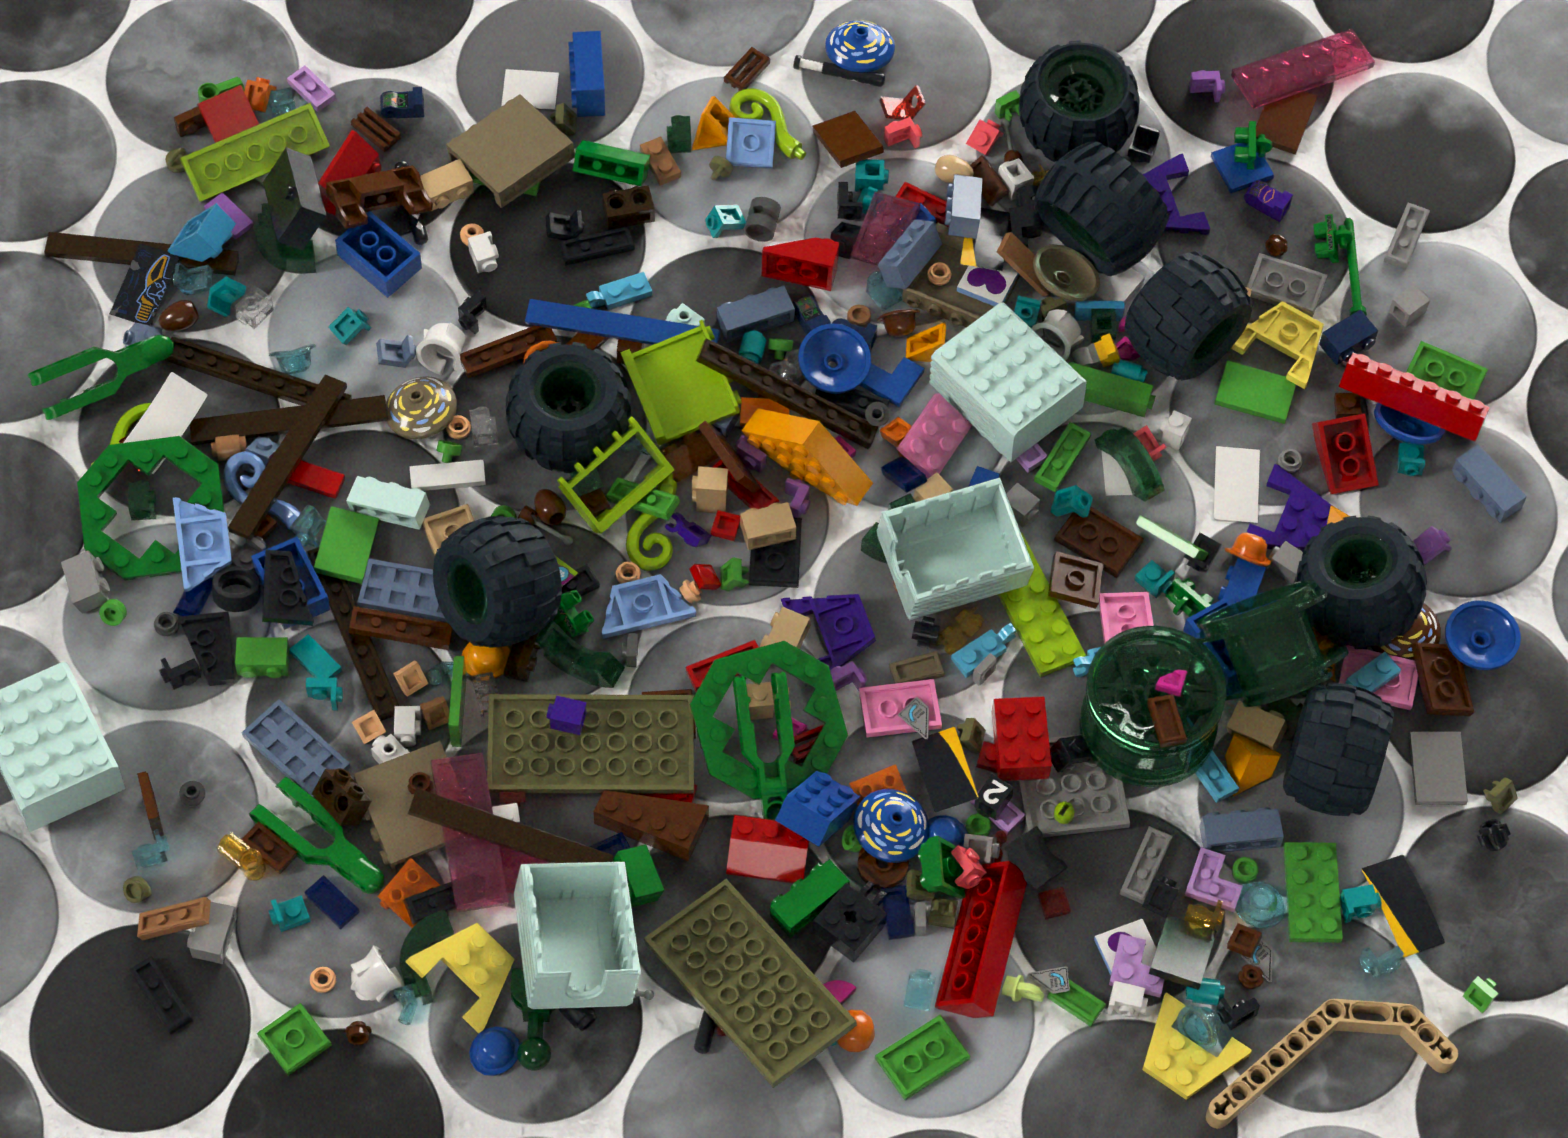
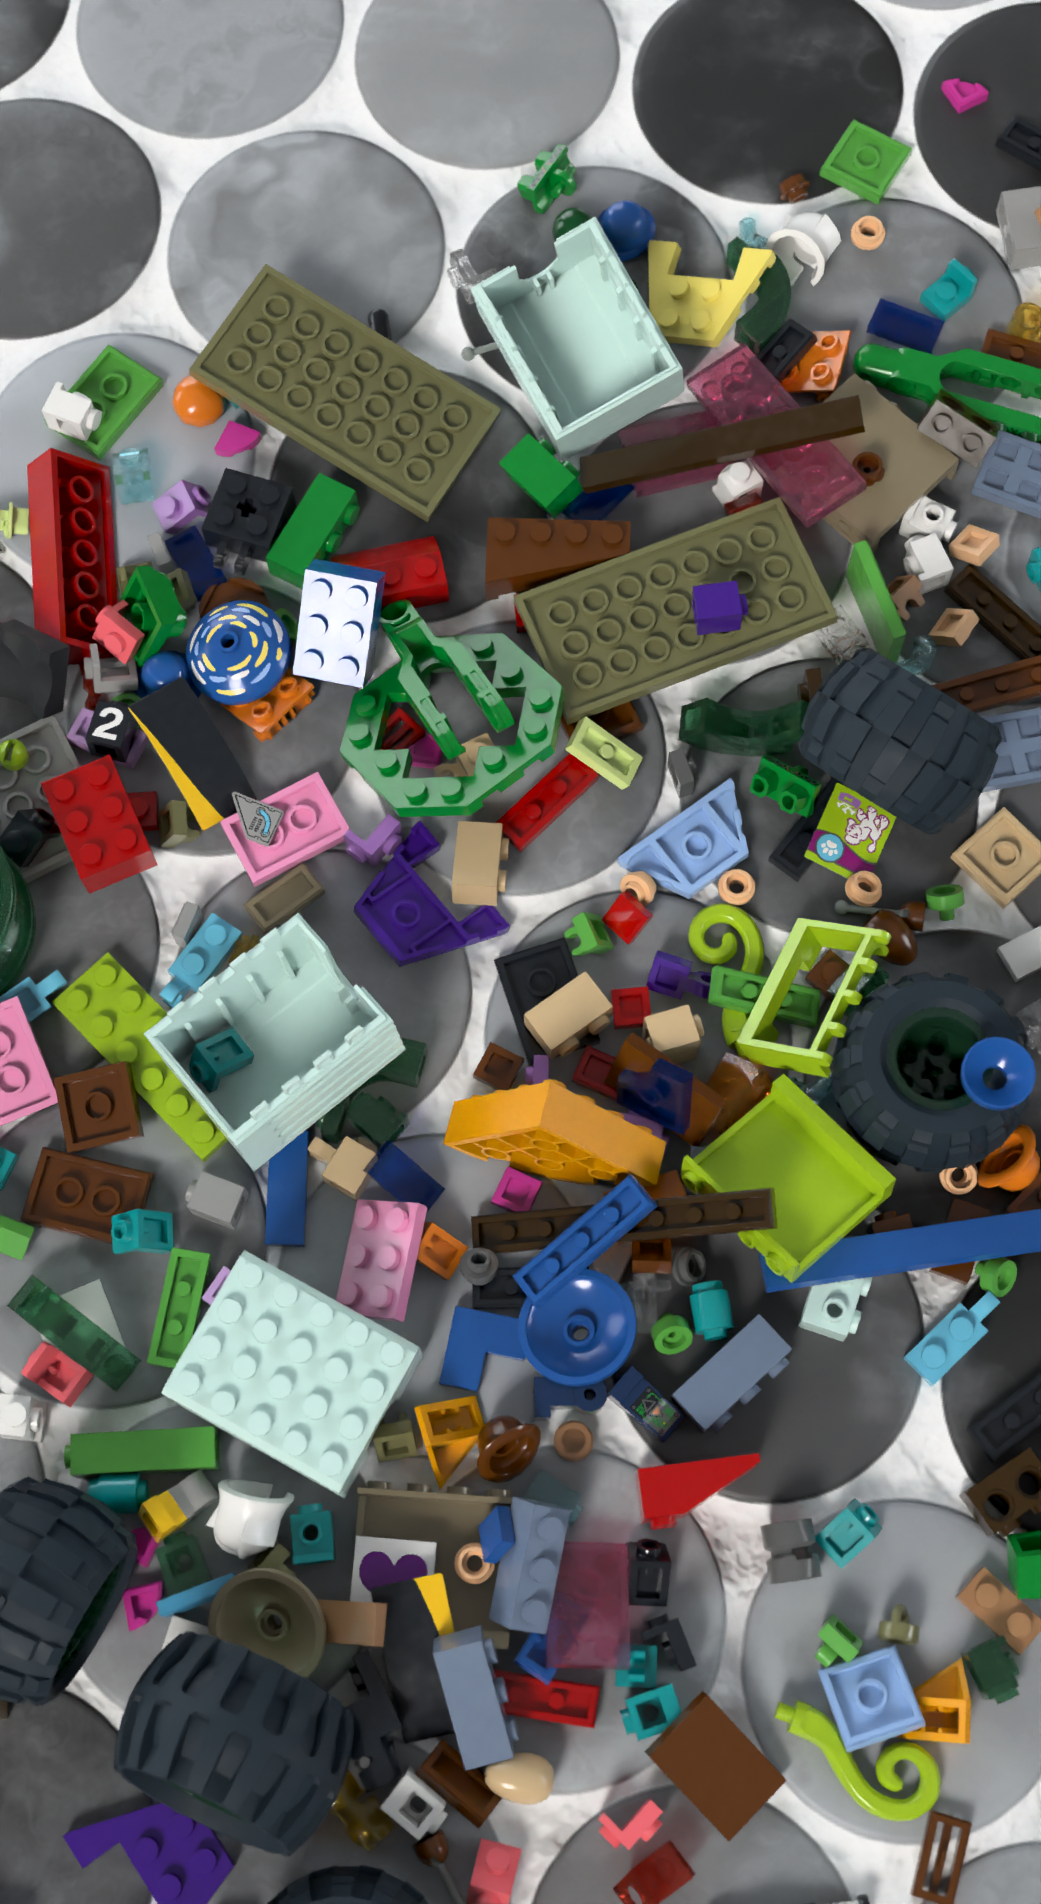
camera: 165 degrees right, 10 degrees up
(194, 1066) = (964, 94): none -> dark pink tile
(540, 348) = (1008, 1058): none -> blue piece
(544, 1100) = (552, 179): none -> green hips
(553, 535) = (864, 888): none -> light nougat plate
(620, 1036) = (463, 275): none -> clear bracket
(676, 676) = (603, 753): none -> yellowish green plate
(736, 451) = (659, 1094): none -> clear blue tile
(755, 173) = (837, 1641): none -> bright green tile
(812, 390) = (584, 1241): none -> blue tile
(821, 520) = (498, 1067): none -> reddish brown plate
(892, 951) = (181, 505): none -> medium lavender bracket
(922, 275) = (496, 1534): none -> blue tile
(949, 1039) = (71, 413): none -> white brick
(990, 560) = (218, 1058): none -> teal bracket

